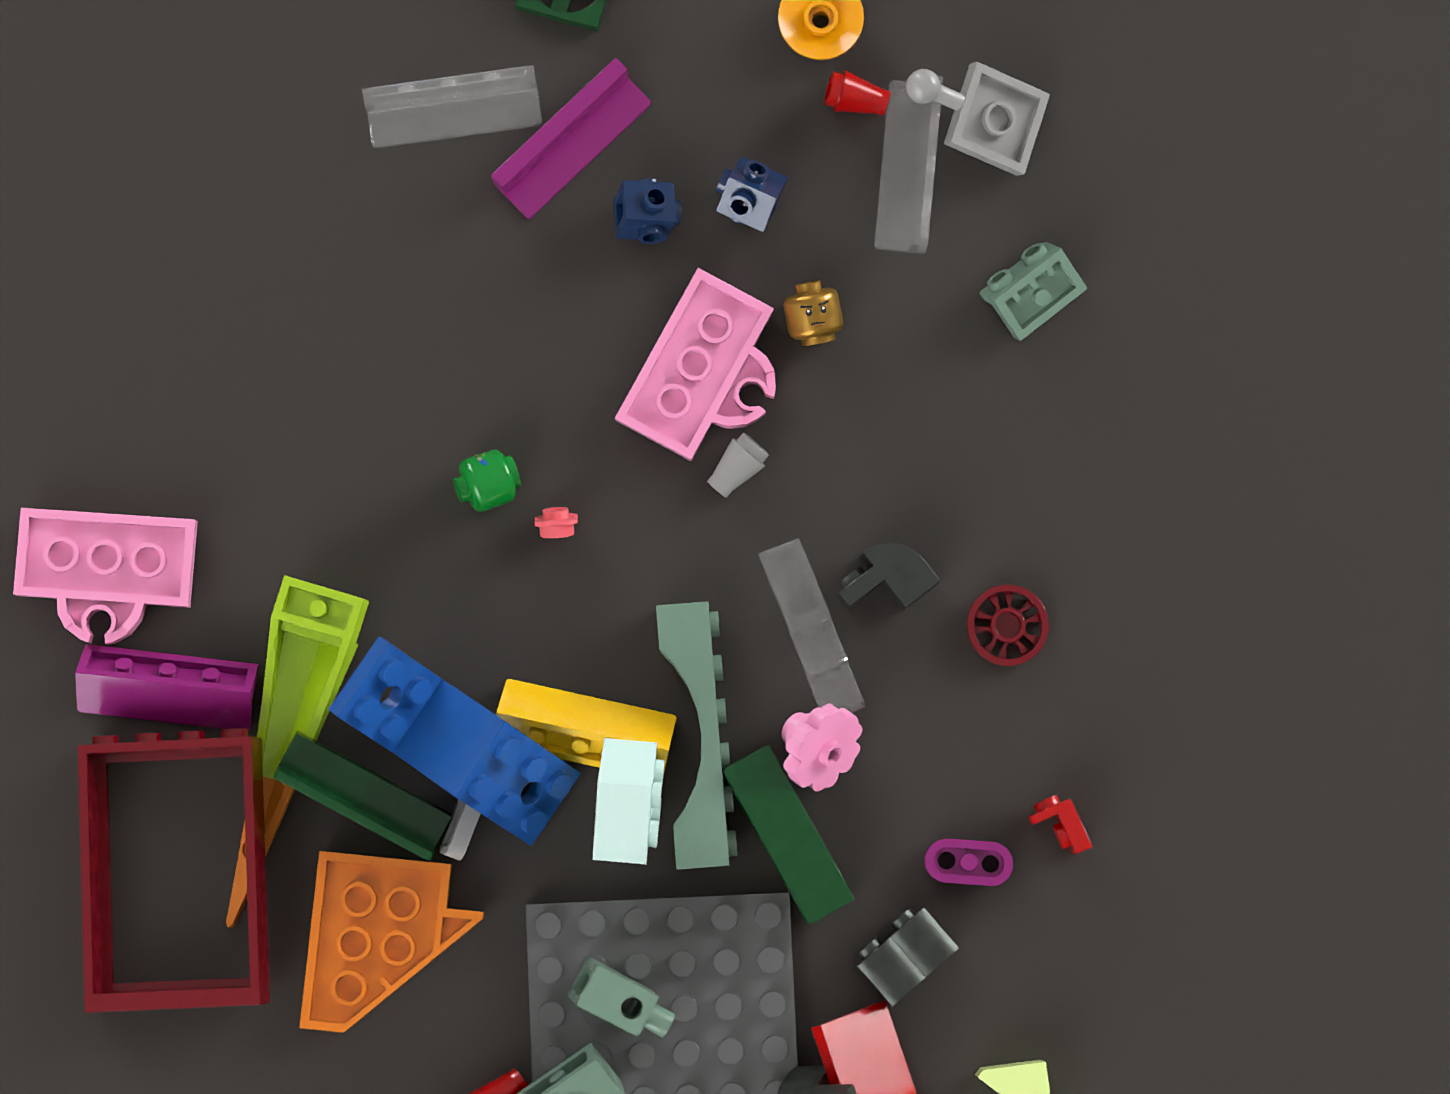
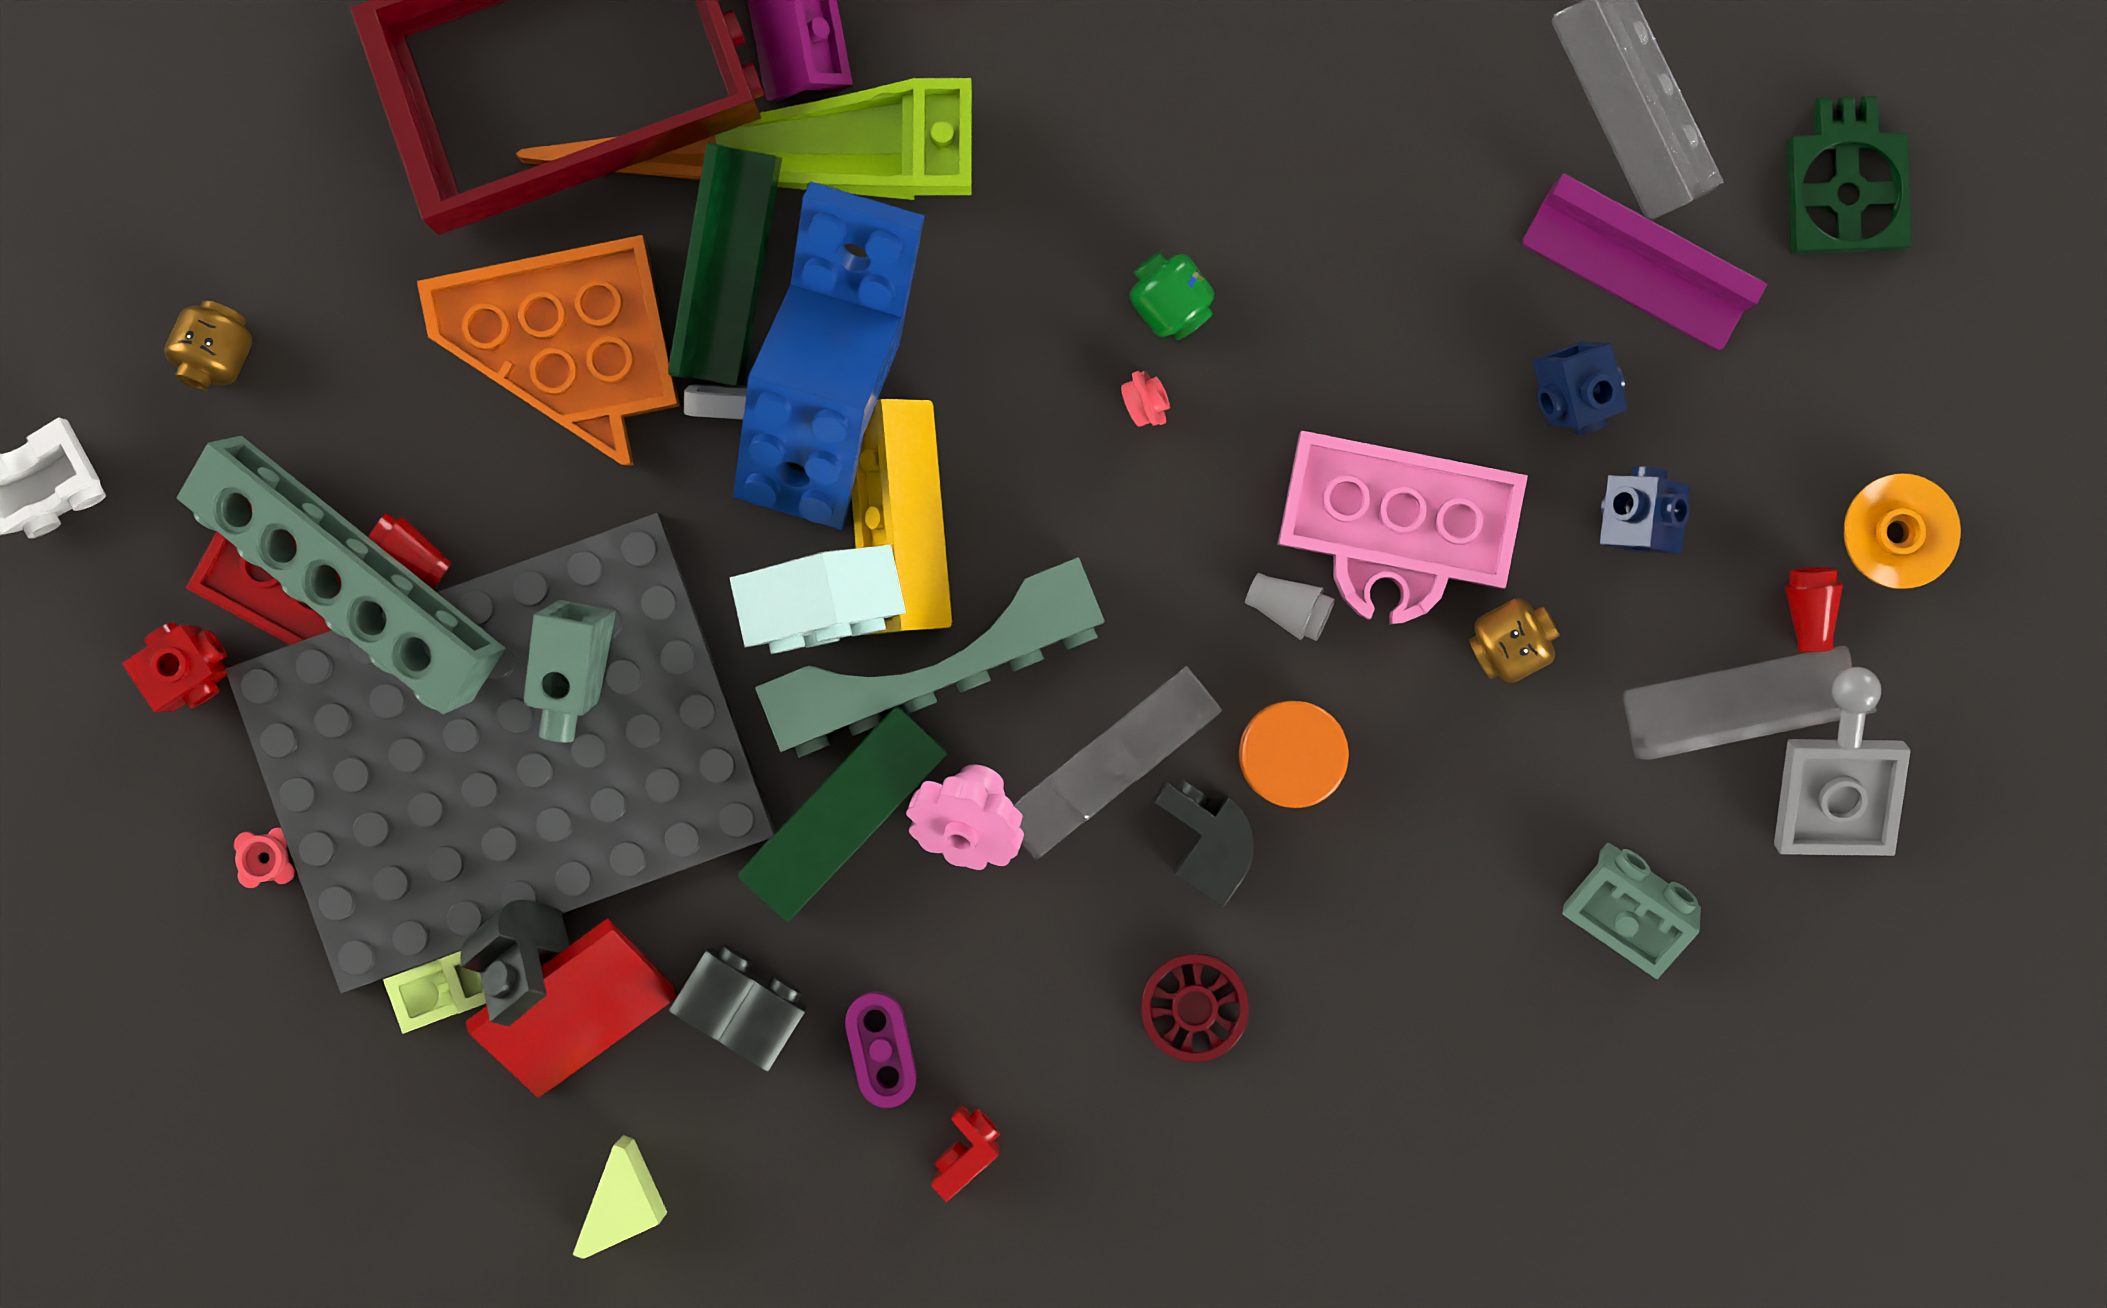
camera: 70 degrees right, 5 degrees up
(846, 496) = (1293, 754): none -> orange head

